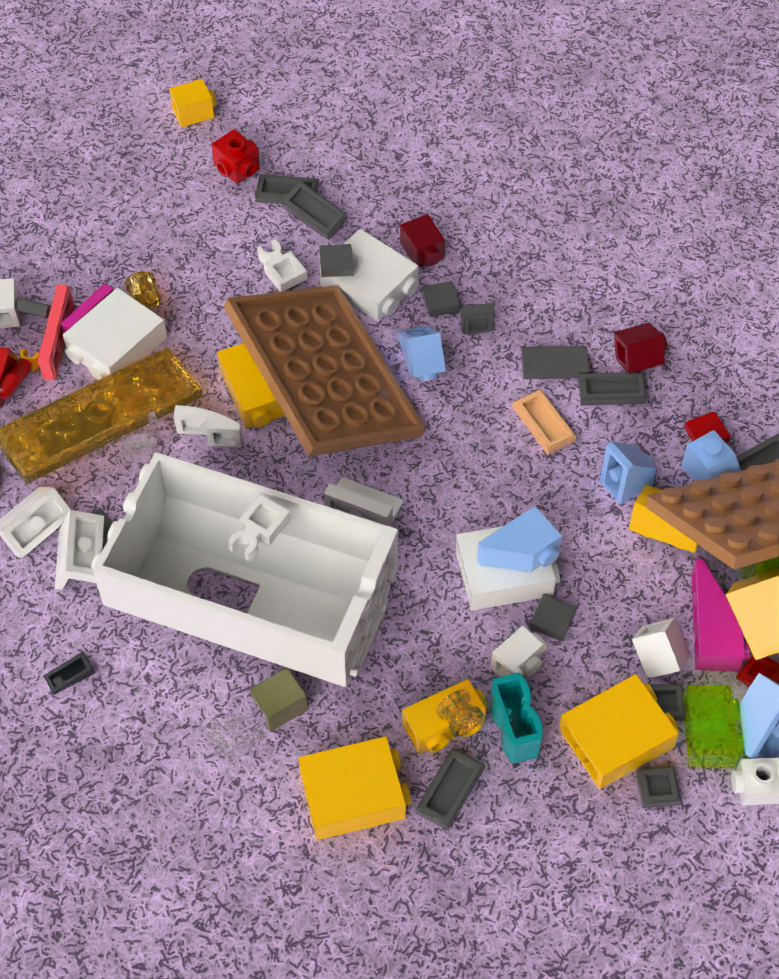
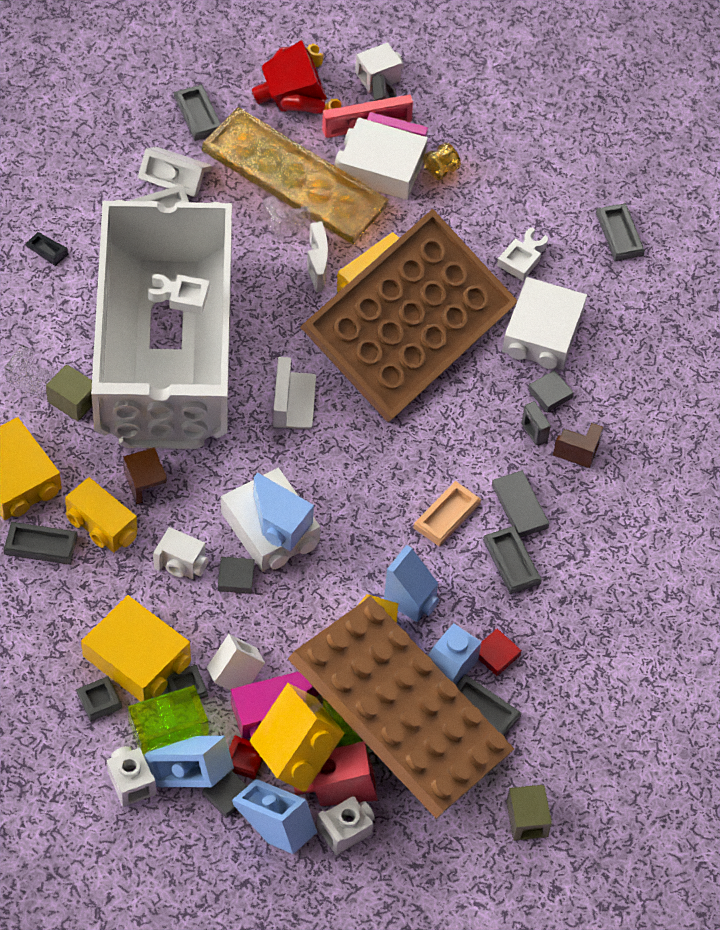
camera: 65 degrees right, 0 degrees up
(192, 102) = (681, 121): yellow brick -> none
(235, 156) = (629, 175): red brick -> none
(314, 210) = (602, 258): dark grey tile -> none
(336, 260) = (534, 285): dark grey tile -> none
(411, 661) = (143, 472): none -> reddish brown panel
(422, 241) = (606, 353): dark red brick -> none
(422, 352) = (475, 389): light blue slope -> none
(459, 713) = (92, 511): clear yellow wheel -> none
(514, 294) = (578, 447): none -> reddish brown panel
(516, 718) = (110, 566): teal brick -> none
(640, 347) = (562, 564): dark red brick -> none

